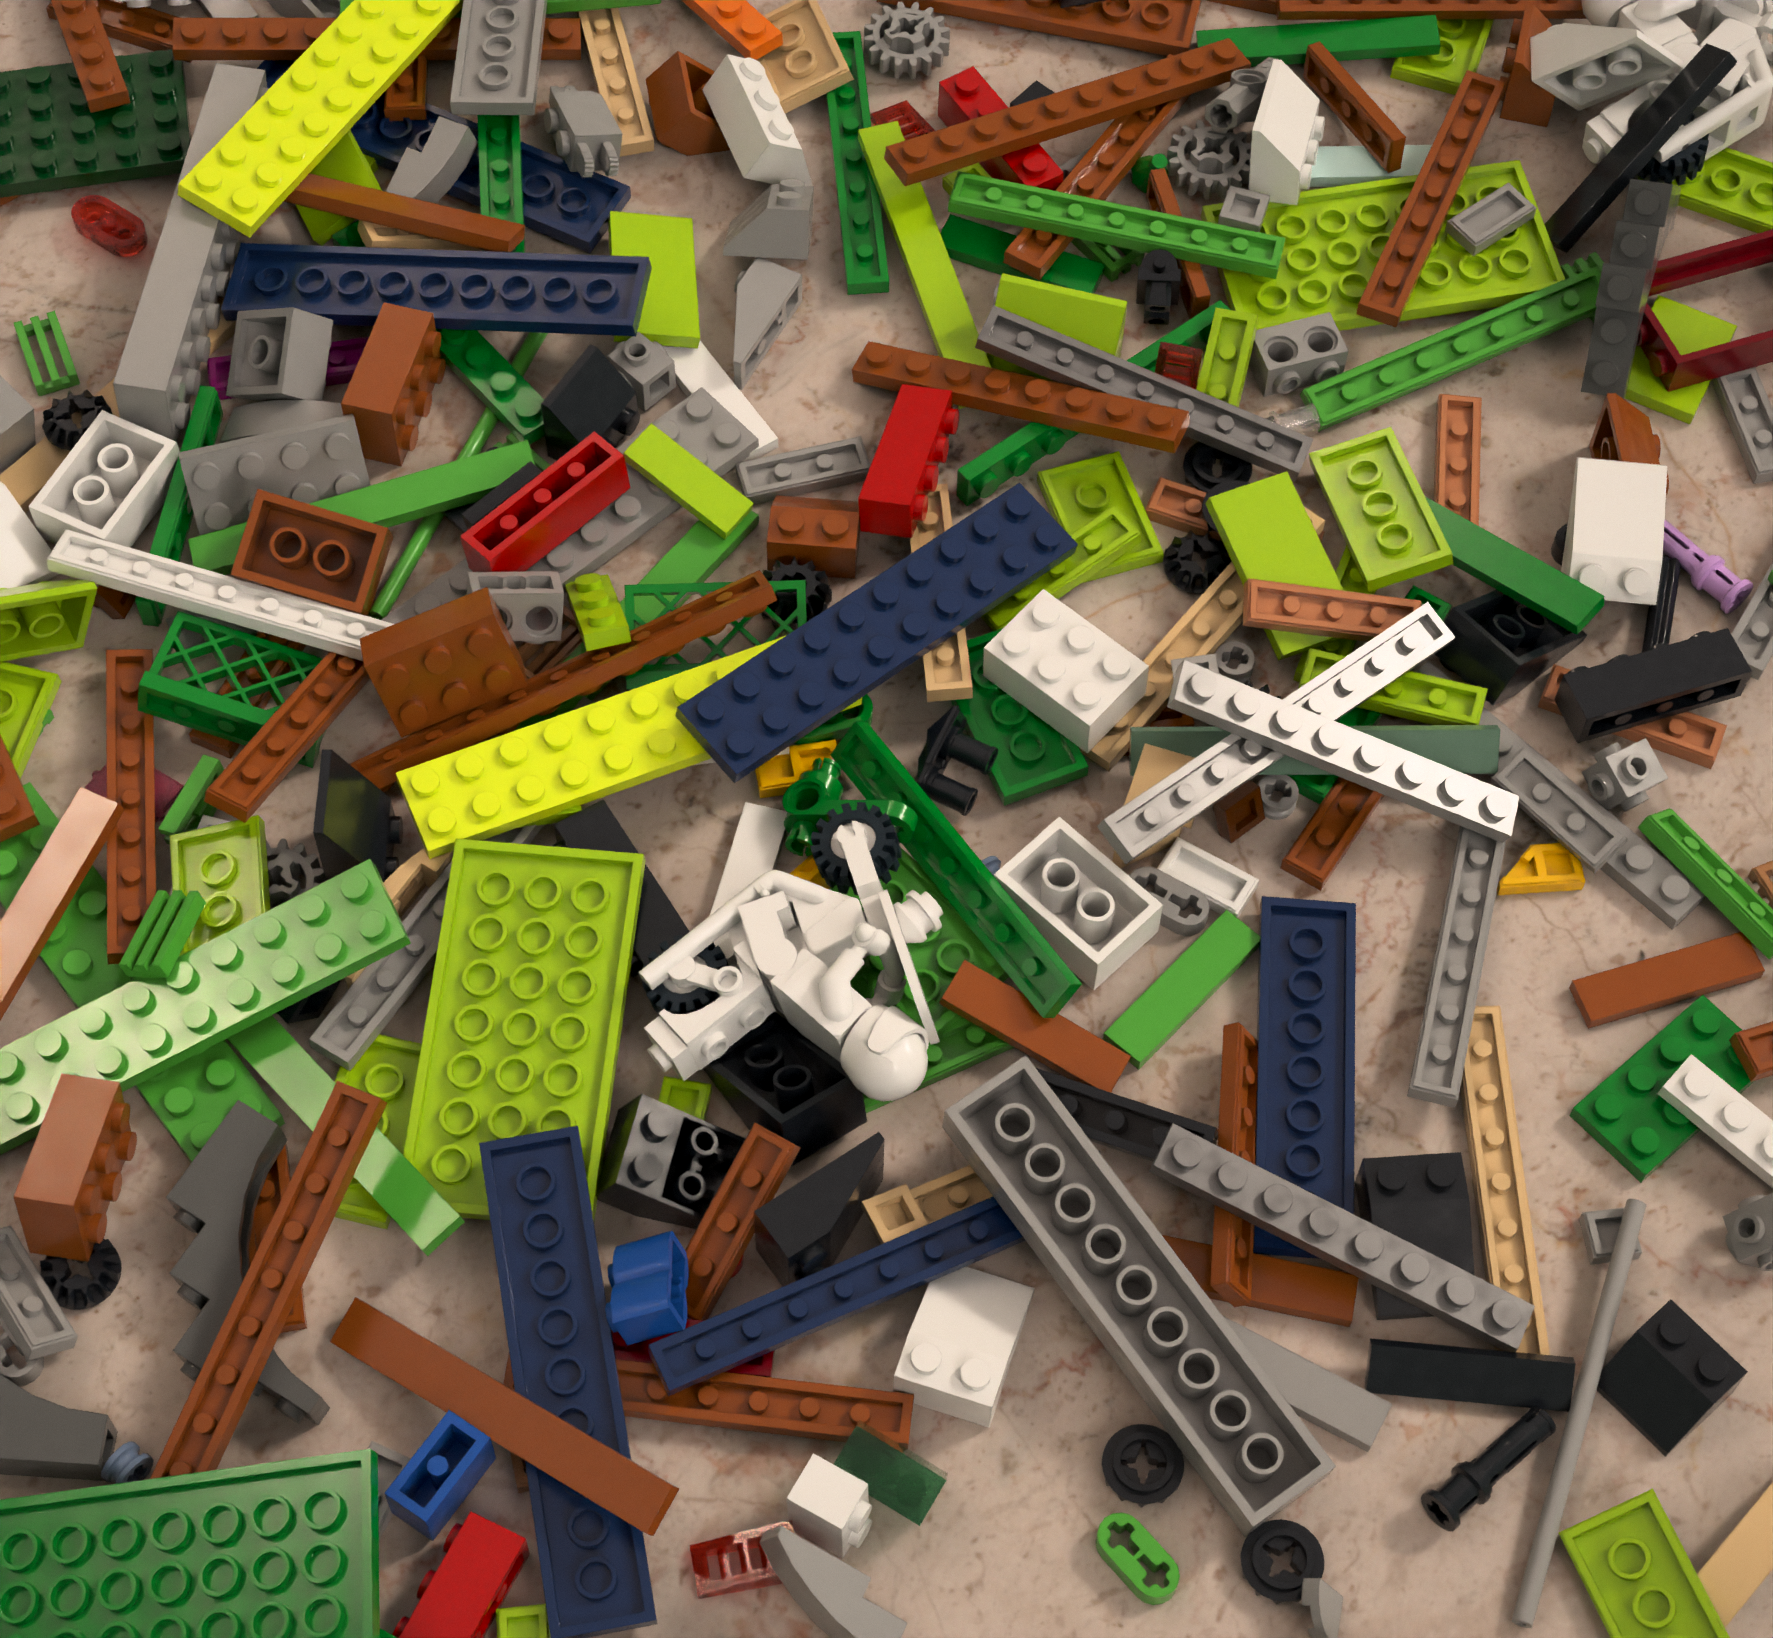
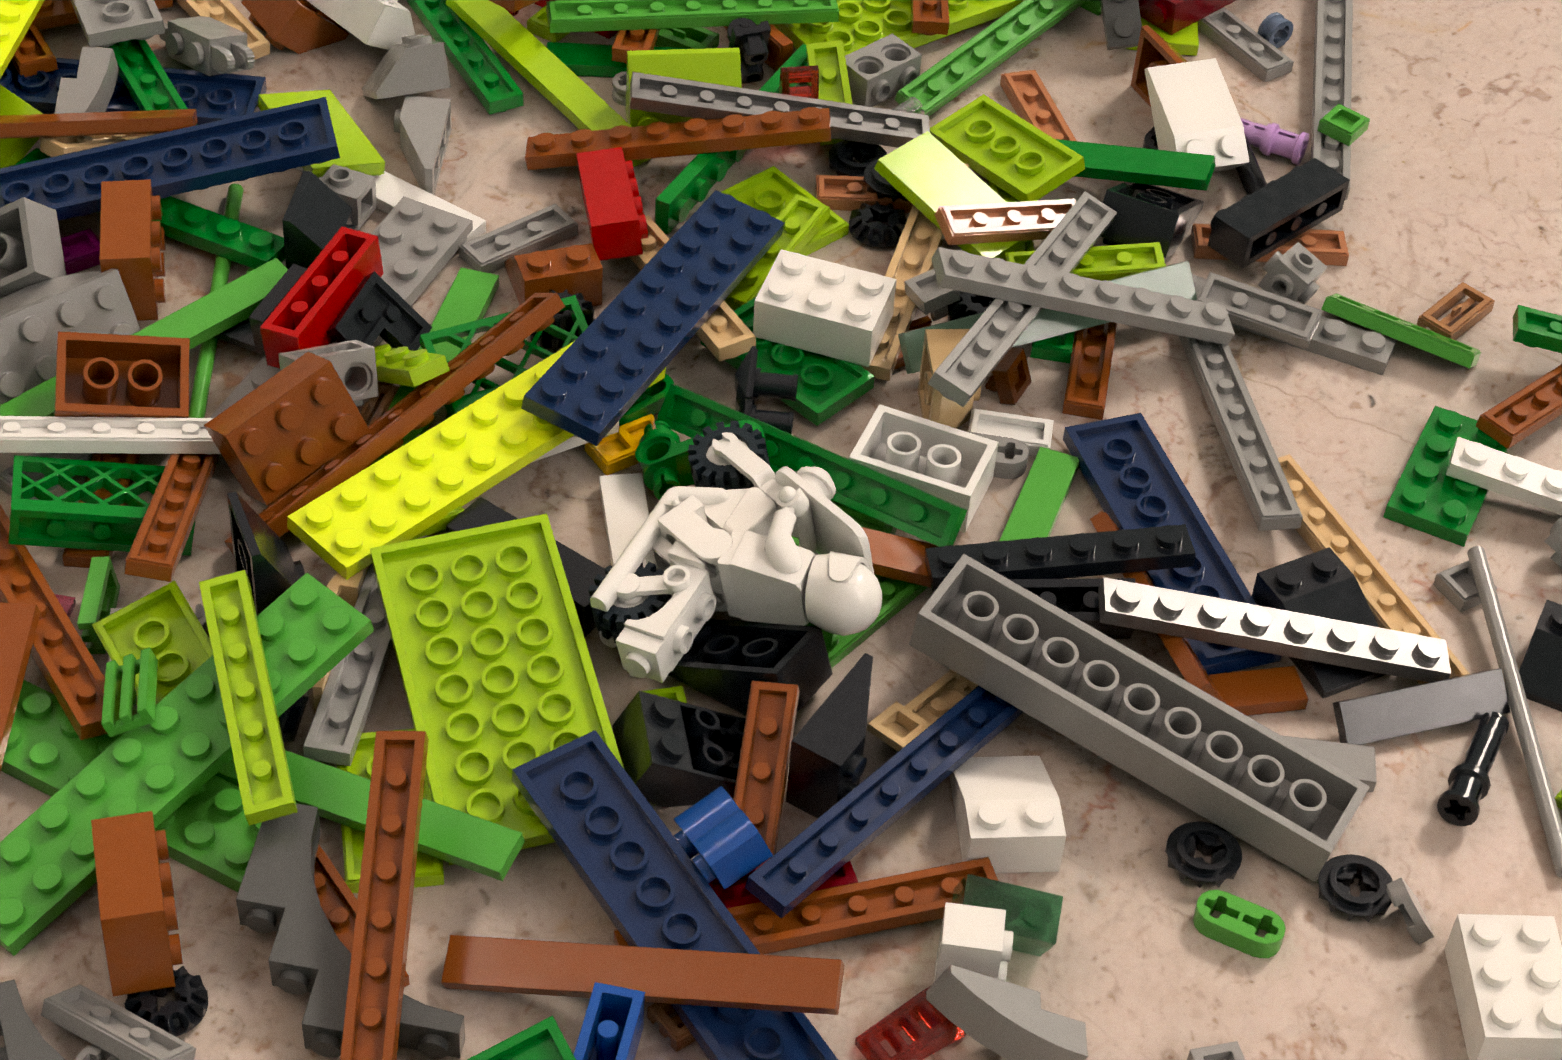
camera: 25 degrees left, 15 degrees down
(252, 986) = (247, 698): none -> lime plate
(600, 536) = (377, 312): none -> black plate
(688, 481) = (433, 258): lime tile -> none
(1159, 1070) = (1072, 554): none -> black plate
(1287, 804) = (1041, 361): light grey bush -> none
(1543, 869) = (1268, 358): yellow tile -> none
(1666, 979) = (1400, 405): dark orange tile -> none

